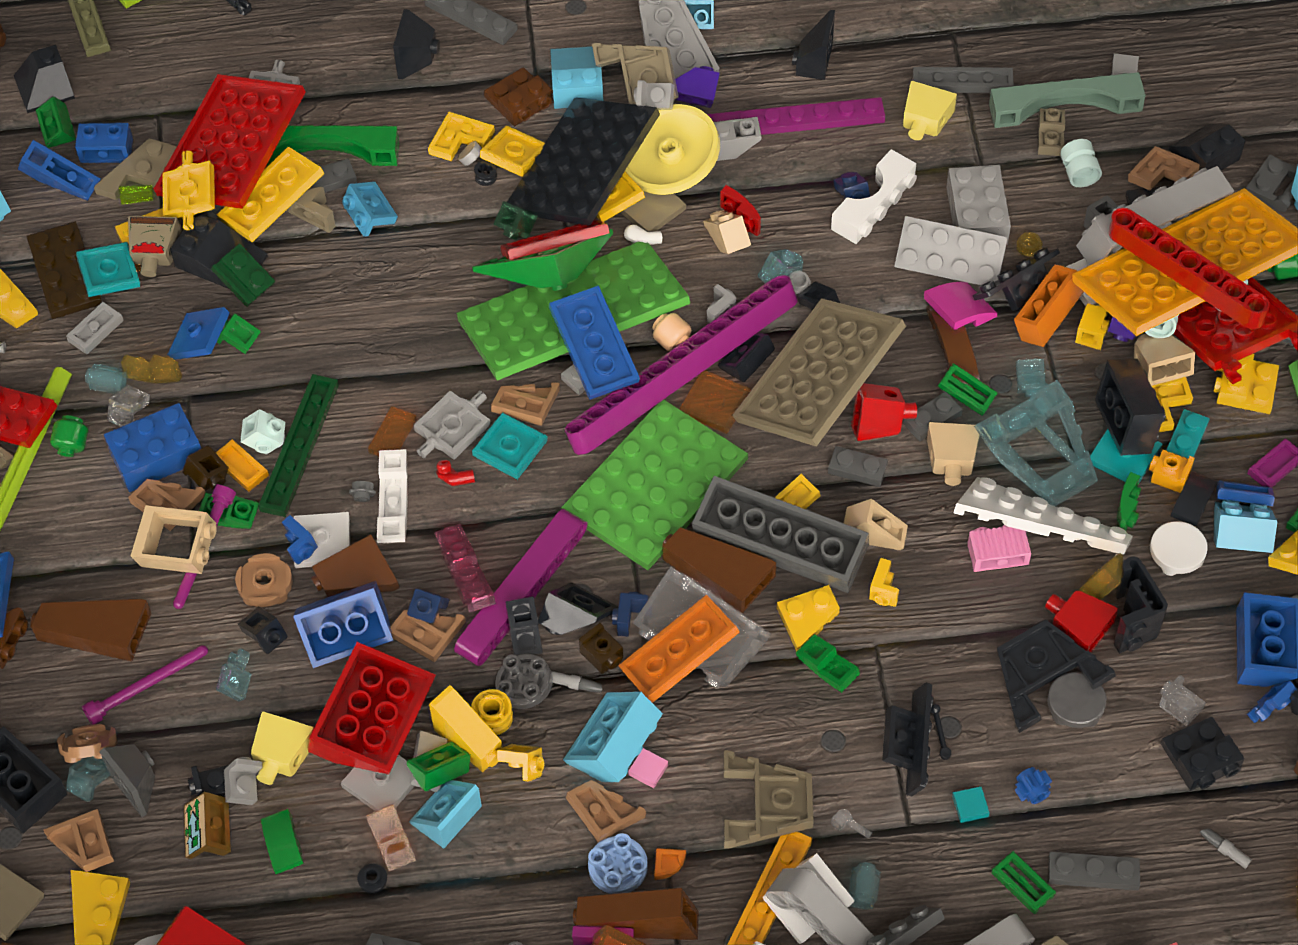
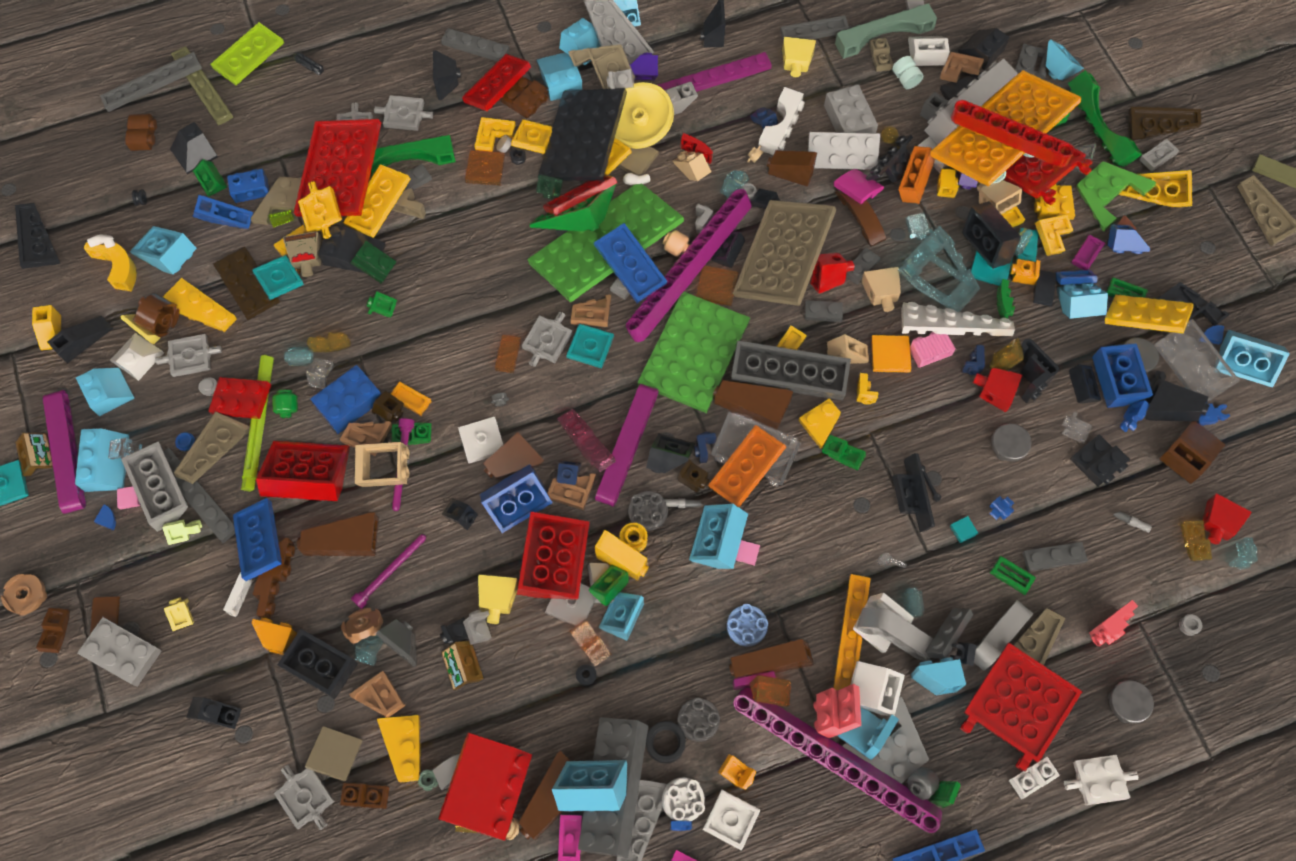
camera: 15 degrees left, 10 degrees up
(68, 529) = (303, 471): none -> red slope
(94, 328) = (280, 321): light grey plate -> none
(198, 333) = (354, 310): blue plate -> none
(233, 677) = (450, 554): clear light blue plate -> none
(263, 432) = (420, 372): light aqua brick -> none
(268, 594) = (447, 488): medium nougat plate -> none
(282, 841) = (517, 663): green slope -> none
(298, 445) = (446, 376): dark green plate -> none
(302, 541) = (469, 444): blue bracket -> none
(343, 86) = (403, 113): none -> light grey plate
(368, 206) = (445, 195): dark azure bracket -> none
(392, 496) = (521, 399): white slope -> none
(435, 180) = (485, 167): none -> clear orange tile
(453, 477) = (558, 376): red arm -> none
(484, 69) = (496, 82): none -> red plate
(523, 756) = (664, 564): yellow bracket -> none
(524, 626) = (638, 473): black slope -> none
(603, 810) = (726, 589): medium nougat wing -> none
(616, 26) = (579, 37): none -> medium azure slope
(668, 862) = (779, 616): orange tile -> none
(781, 801) = (842, 555): dark tan wing -> none
(823, 234) = (754, 154): none -> tan plate
(872, 260) = (793, 166): none -> reddish brown slope
(938, 544) = (890, 353): none -> light orange tile
(977, 402) = (878, 245): green tile -> none
(1039, 658) = (979, 419): black wing -> none
(1059, 580) = (977, 361): none -> dark blue bracket
(1121, 138) = (929, 50): none -> white slope
(1174, 426) = (1025, 235): none -> clear light blue cone
(1178, 548) = (1044, 323): white tile -> none
(1214, 644) = (1084, 384): none -> black slope
(1225, 423) = (1050, 232): none -> yellow plate

